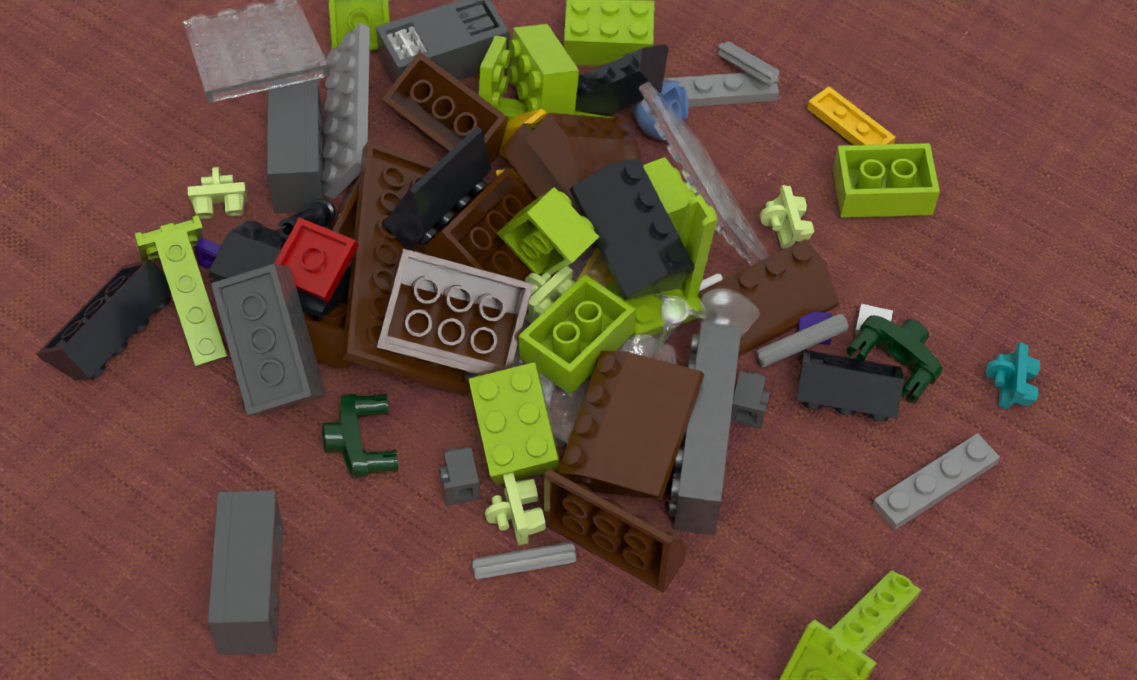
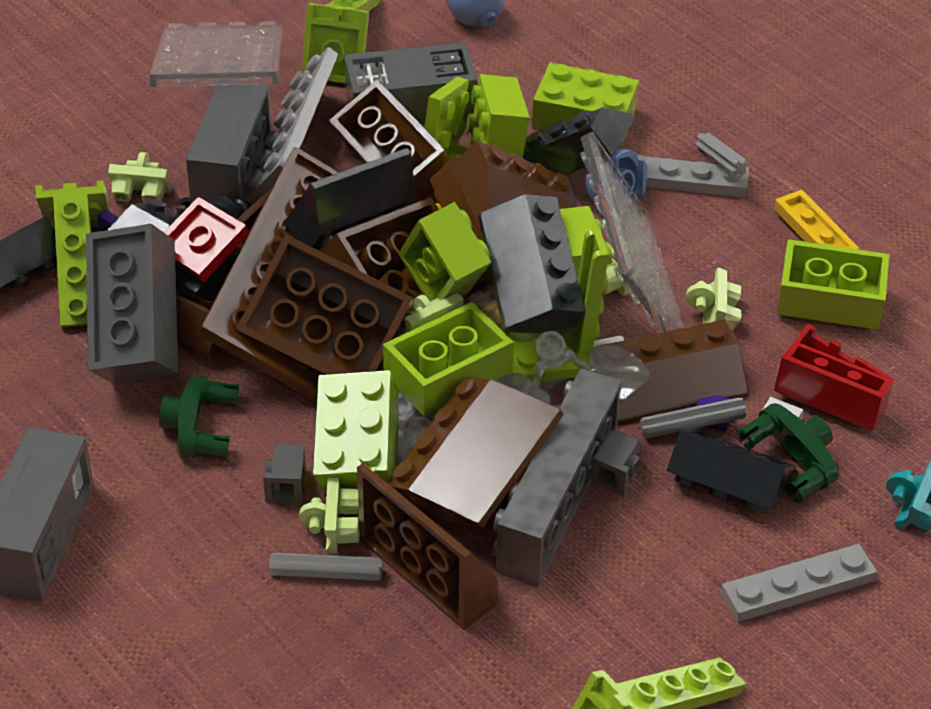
camera: 15 degrees right, 10 degrees down
(913, 279) = (833, 381): none -> red wedge

